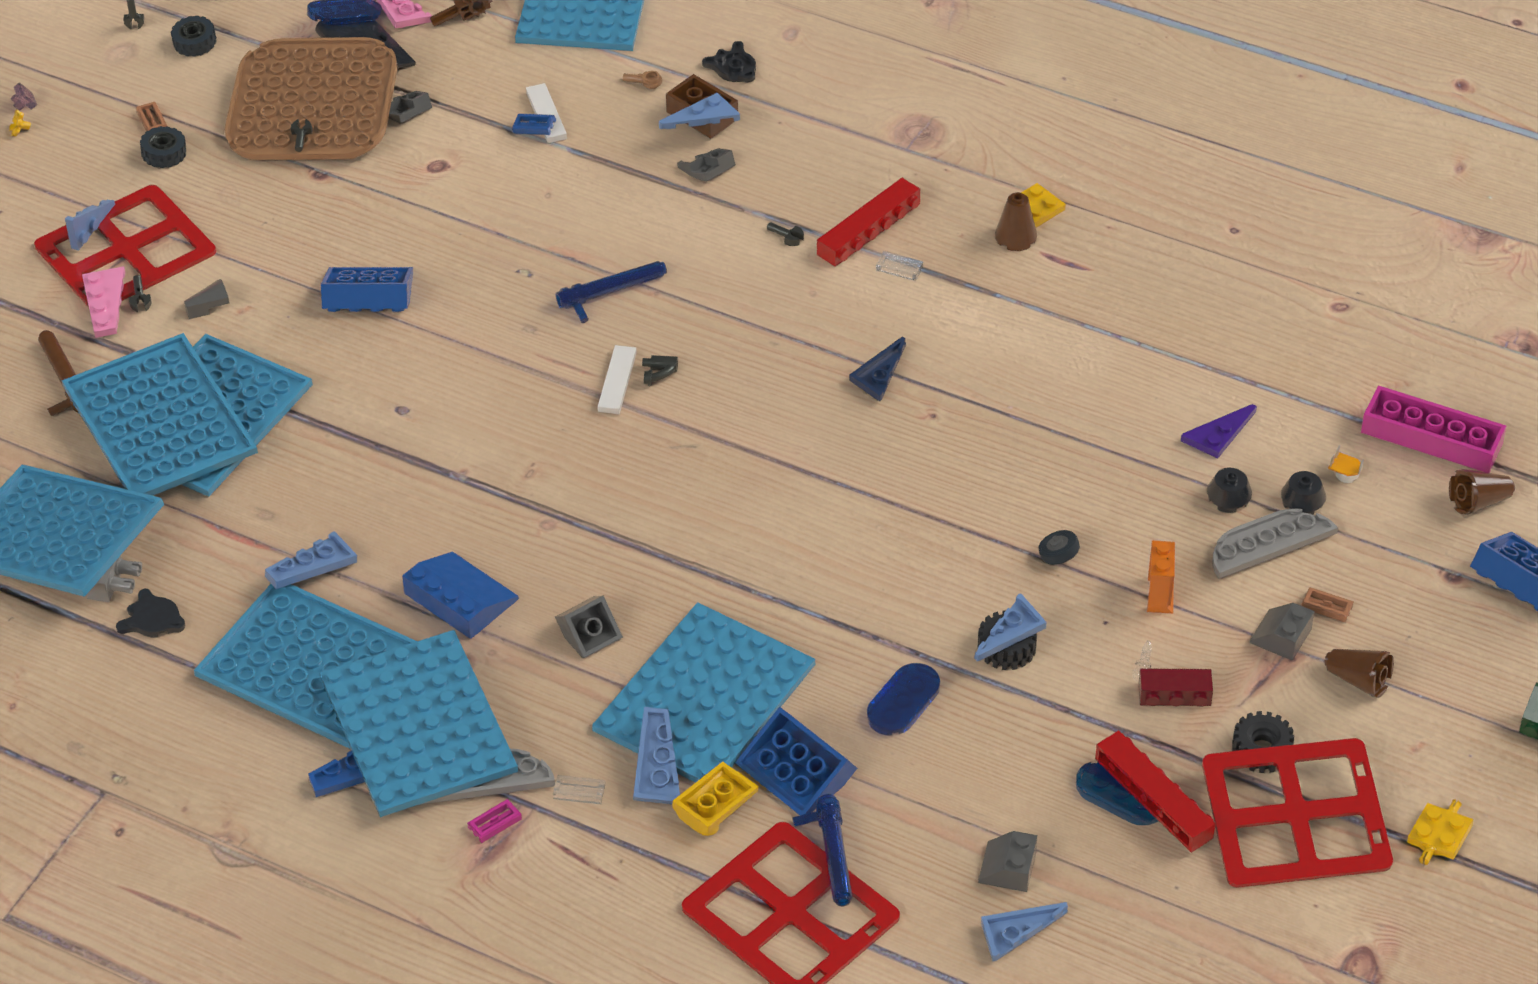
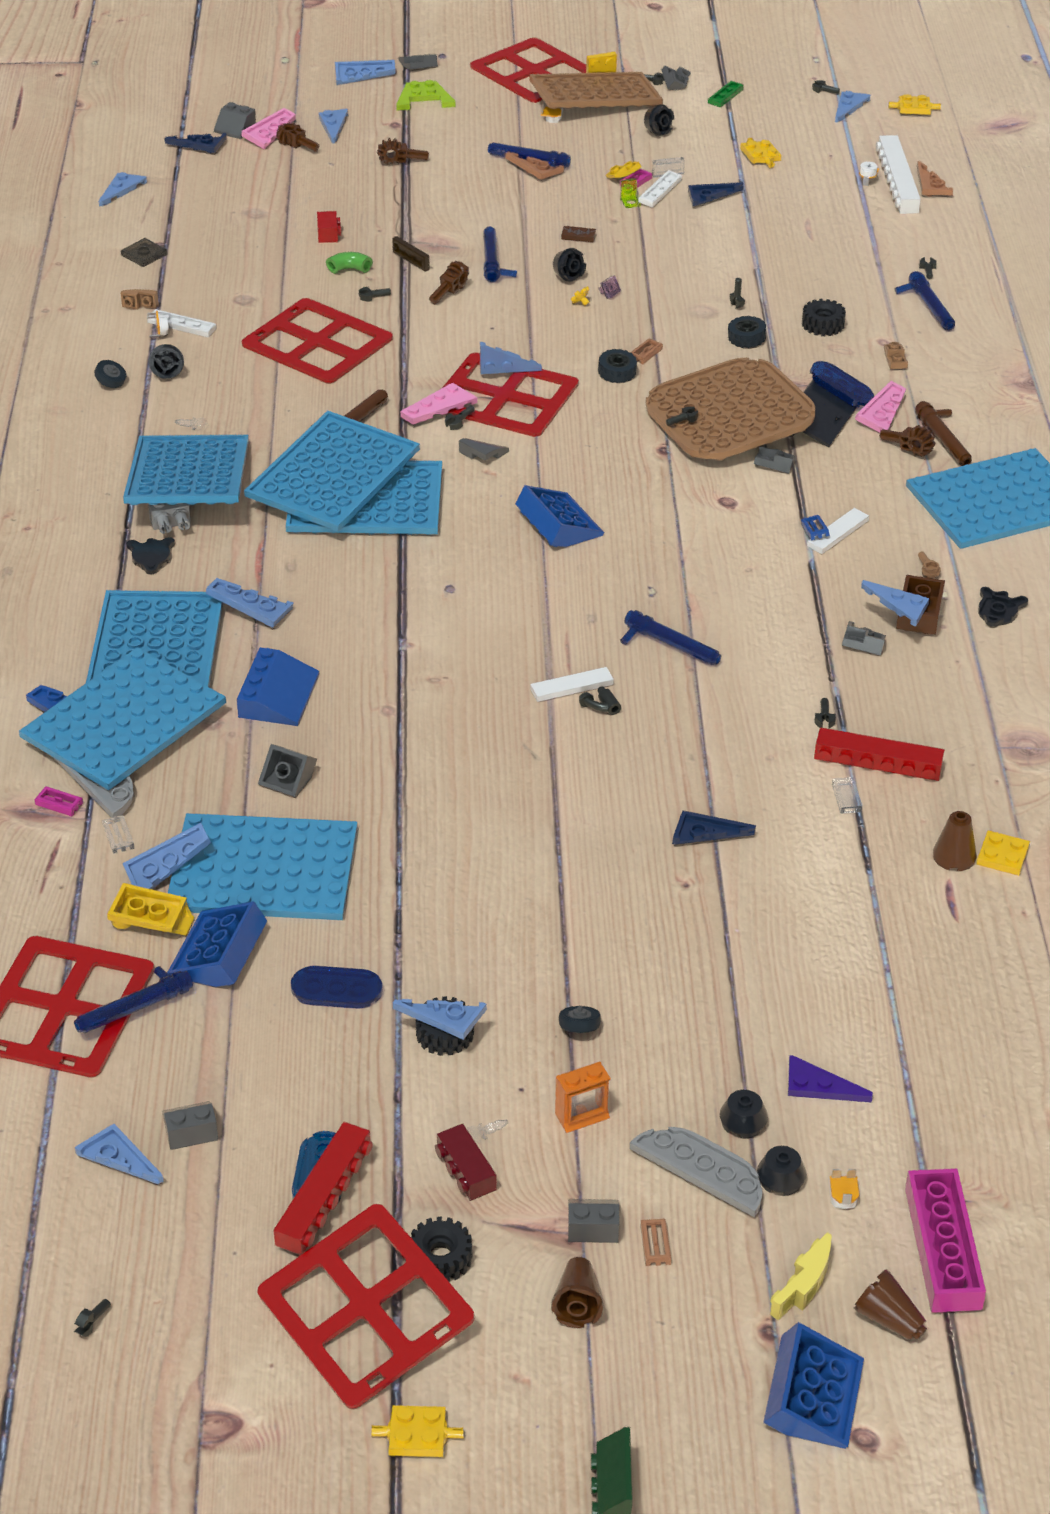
camera: 60 degrees right, 5 degrees down
(1419, 523) = (805, 1283): none -> light yellow slope

